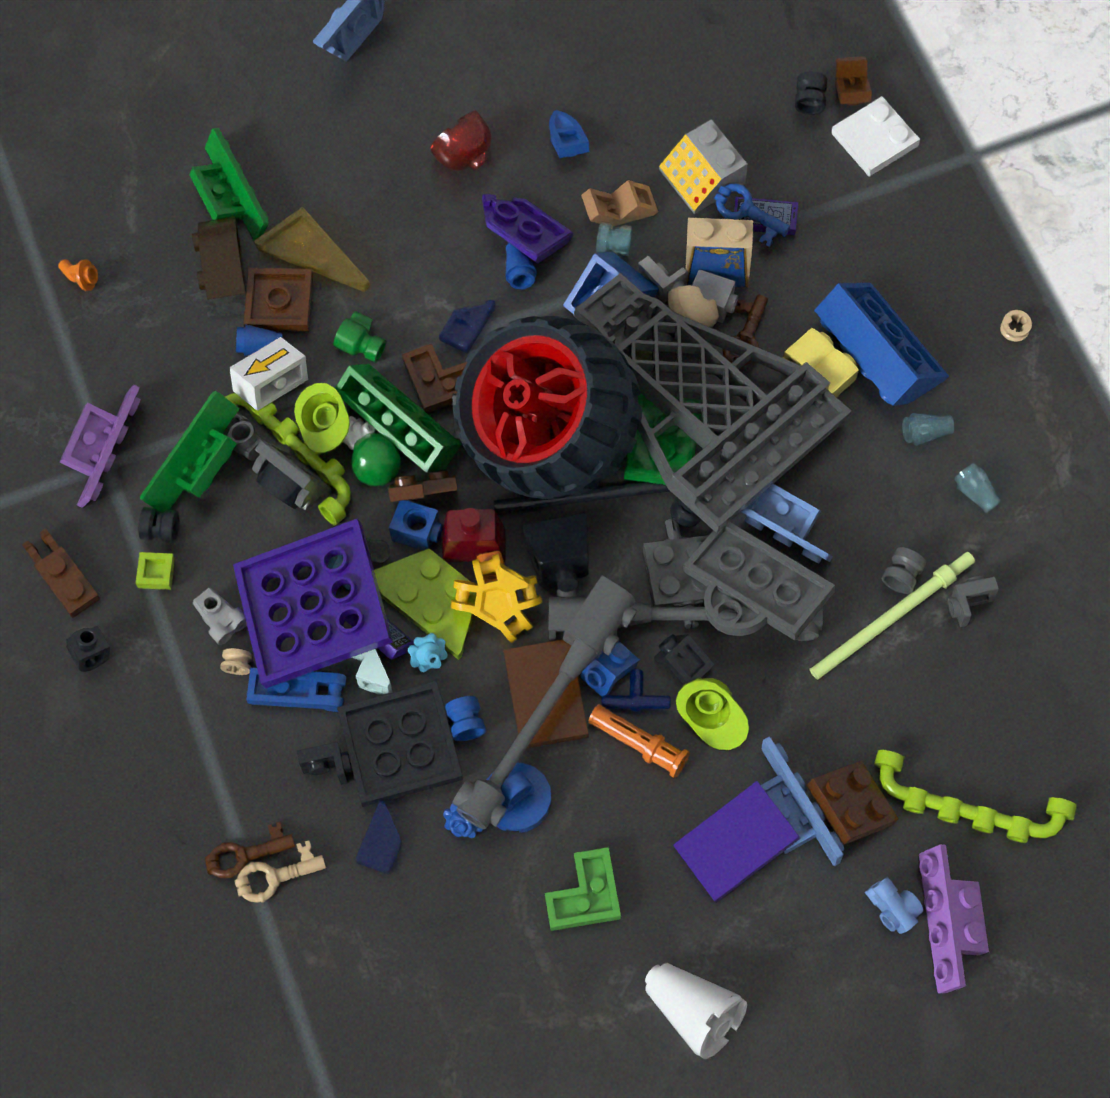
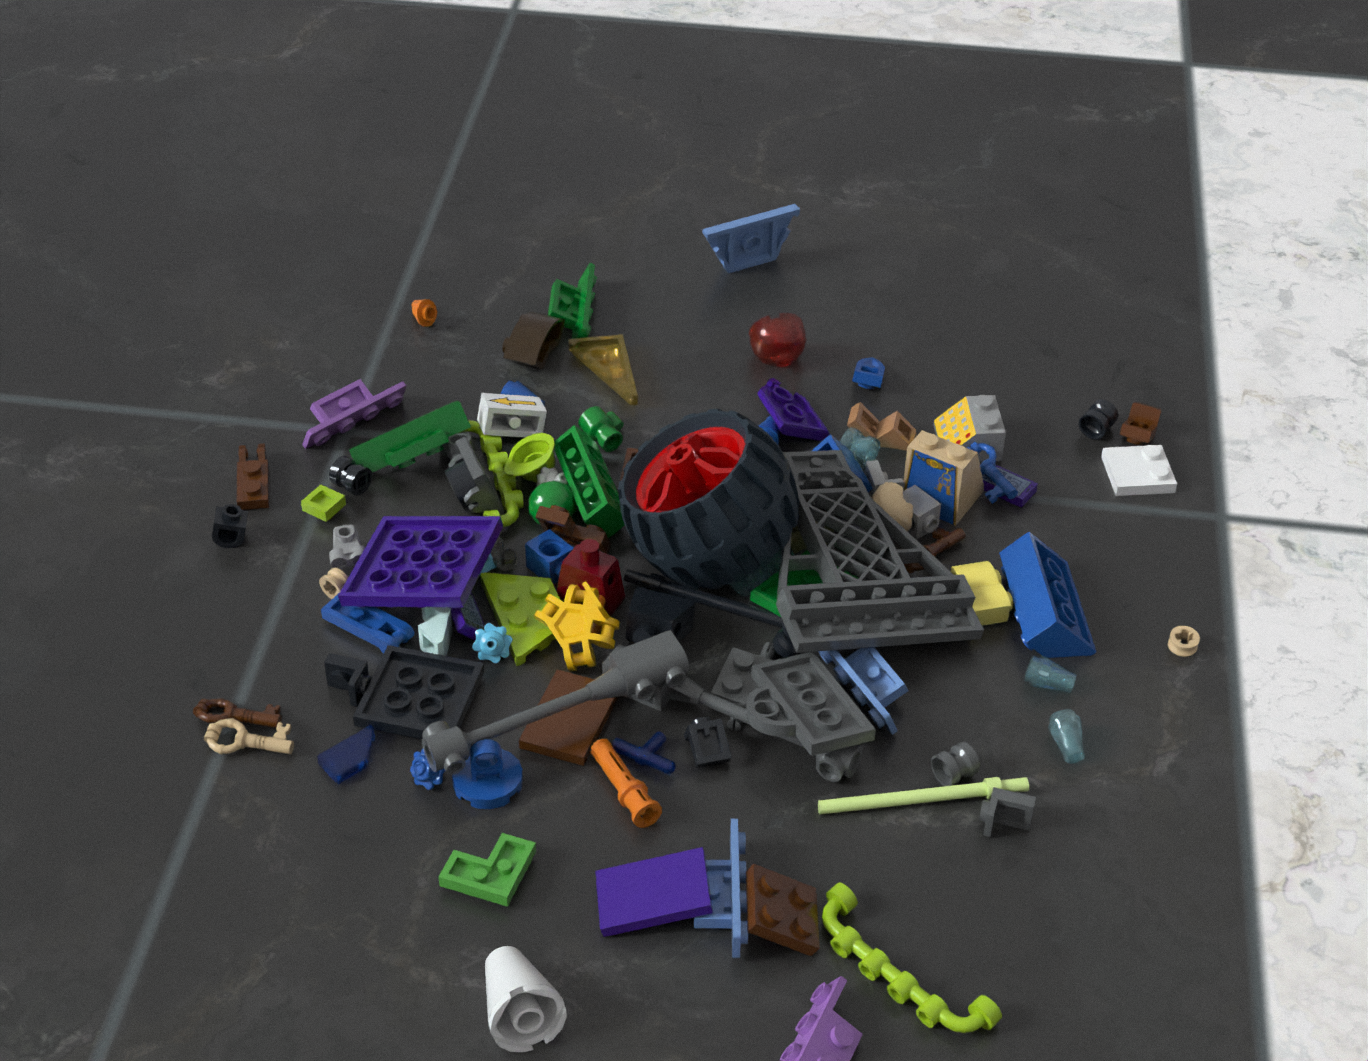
camera: 25 degrees right, 25 degrees down
(279, 298) = (560, 381): reddish brown plate -> none
(464, 715) = (486, 700): blue wheel -> none
(607, 670) = (637, 716): blue bracket -> none
(713, 713) = (702, 786): lime piece -> none
(897, 910) = (765, 1016): medium blue plate -> none

